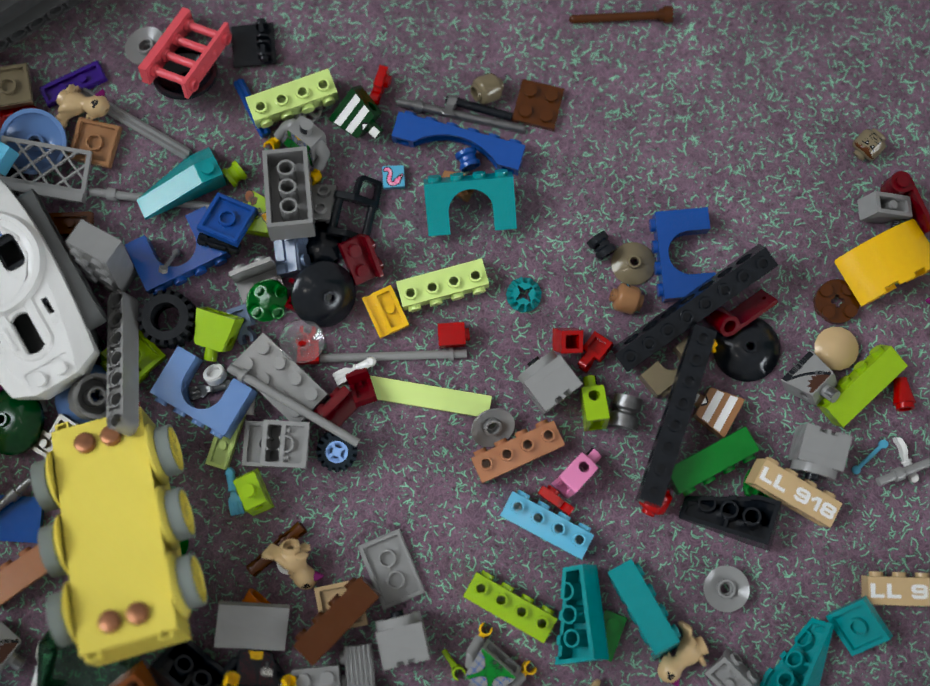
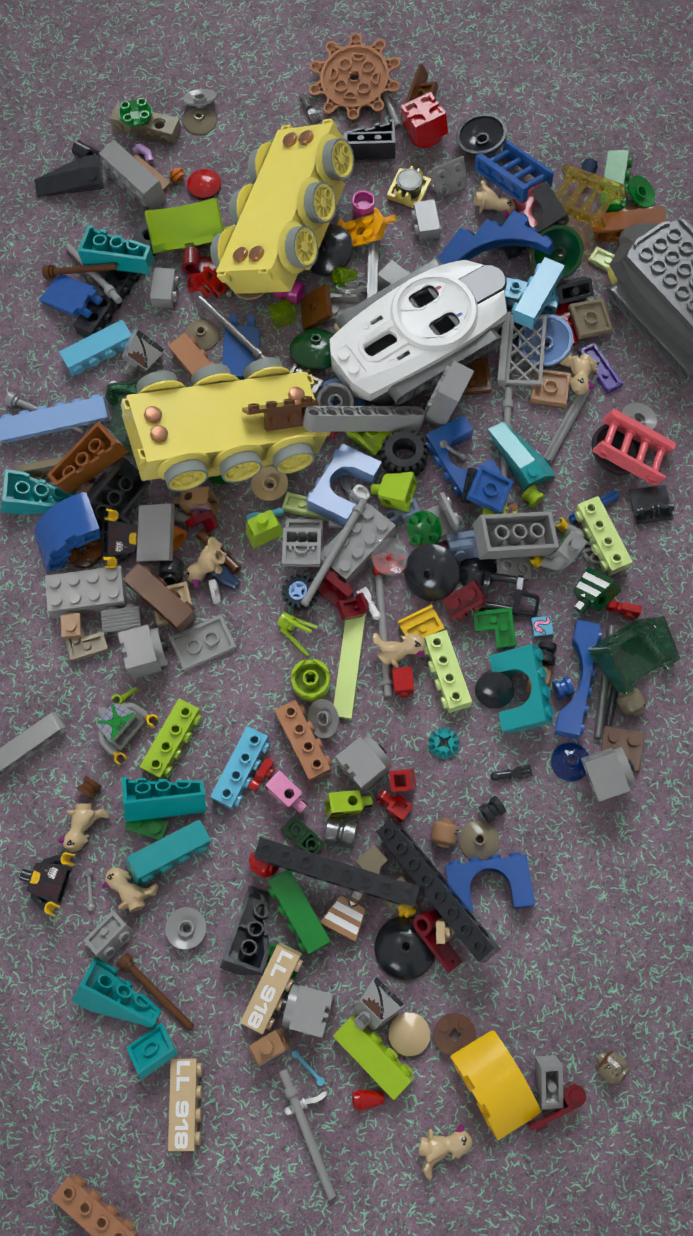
camera: 90 degrees right, 10 degrees down
(114, 460) = (283, 414): none -> reddish brown bracket
(200, 473) = (268, 476): none -> tan dish
(215, 568) = (197, 499): none -> medium nougat torso
(231, 591) = (180, 517): none -> light grey pin
(234, 563) = (207, 518): none -> dark red bracket
(301, 606) = (171, 571): none -> black head
(314, 538) = (226, 579): none -> dark blue cone
(329, 553) = (215, 595): none -> white tile
(373, 464) = (289, 622): none -> lime plant
(388, 219) = (499, 620): none -> green plate
(418, 341) = (395, 651): none -> tan animal
(423, 171) = (548, 649): none -> black wheel
(430, 79) = (635, 652): none -> clear green windscreen
(434, 441) = (310, 670): none -> lime brick
(467, 233) = (494, 689): none -> black dish
(549, 170) = (562, 767): none -> clear blue dish
(559, 216) = (519, 772): none -> black piece
(571, 117) = (609, 773): none -> light grey piece
(625, 455) = (302, 835): none -> dark green slope
(739, 302) = (443, 931): none -> tan plate
(764, 655) = (126, 963): none -> reddish brown piece
(854, 495) = (269, 1047): none -> medium nougat torso

